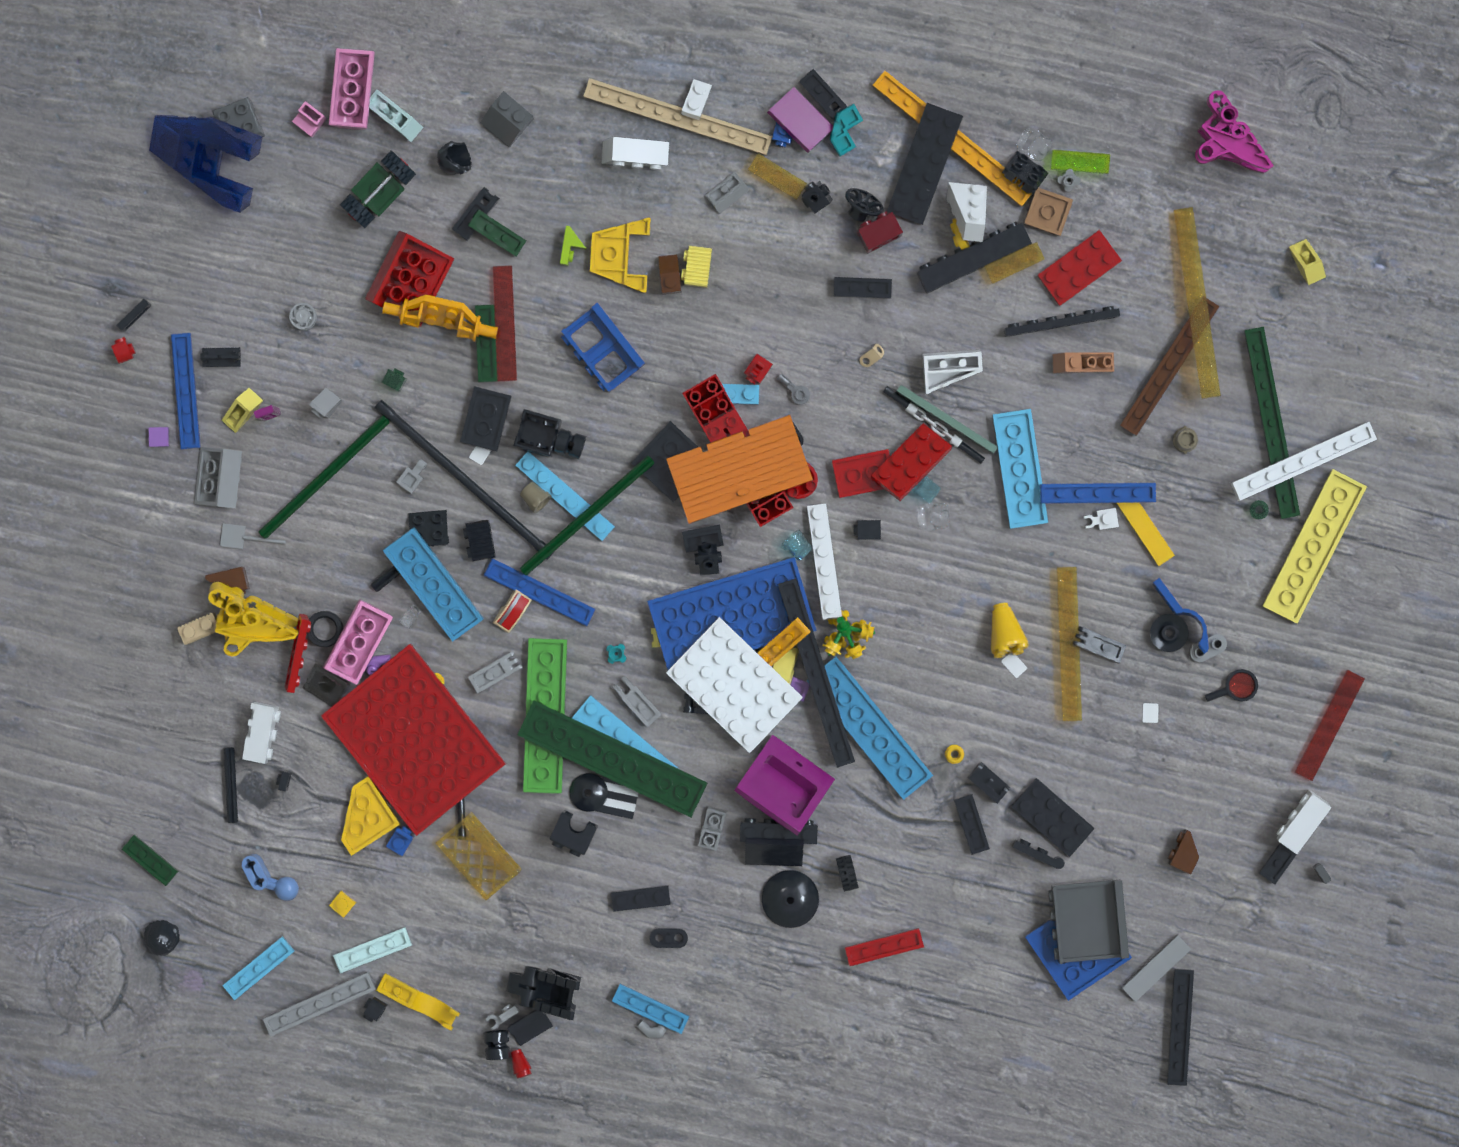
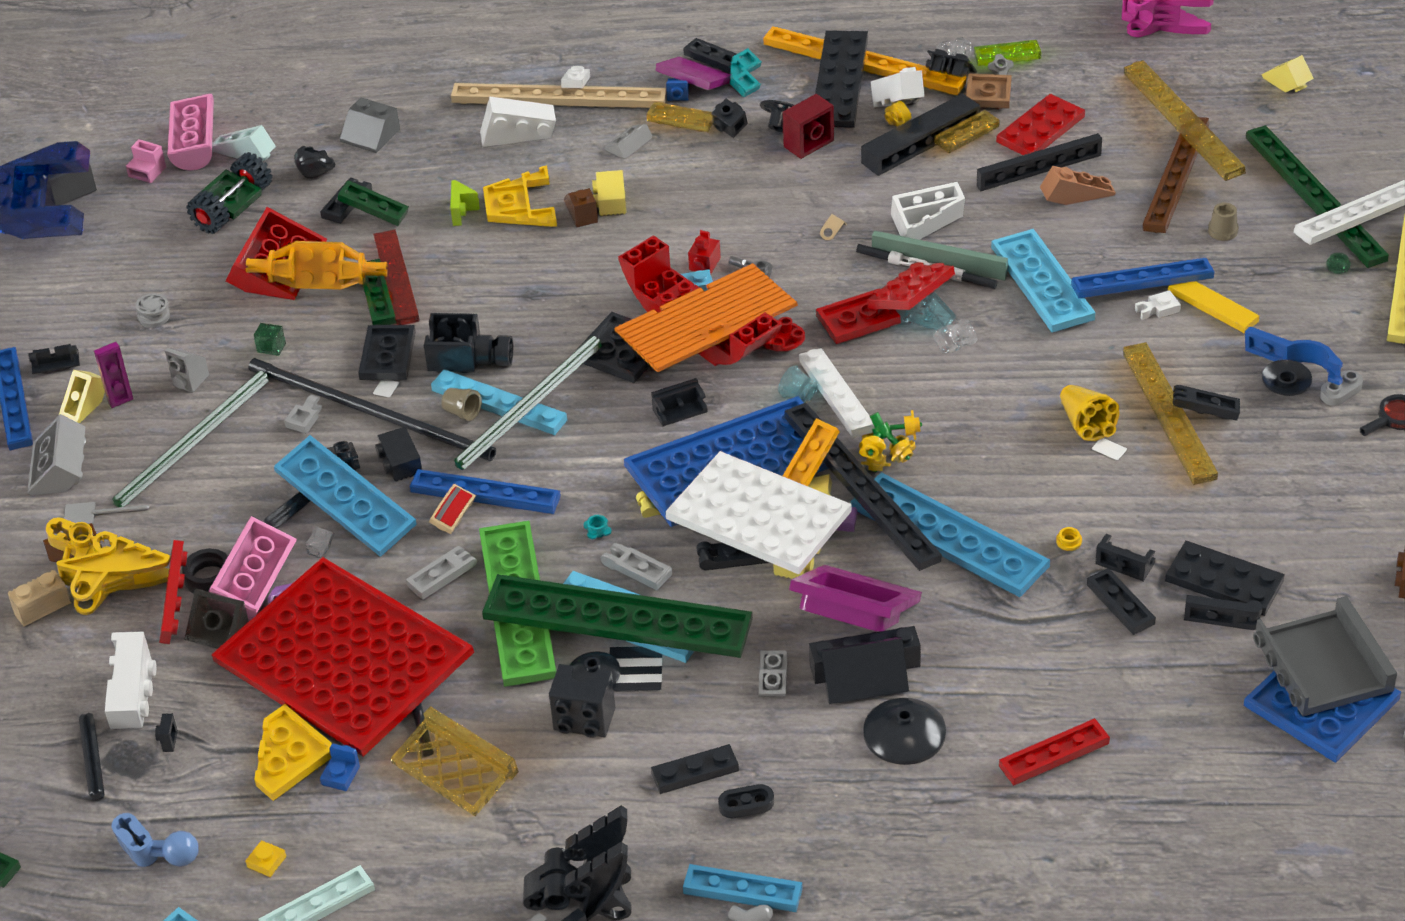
camera: 10 degrees left, 45 degrees down
(612, 341) = (527, 265): blue window -> none
(708, 559) = (691, 413): black brick -> none
(847, 873) = (972, 673): black tyre -> none
(862, 287) = (803, 177): black plate -> none
(867, 529) = (880, 358): black brick -> none
(1150, 713) = (1301, 460): white sticker -> none

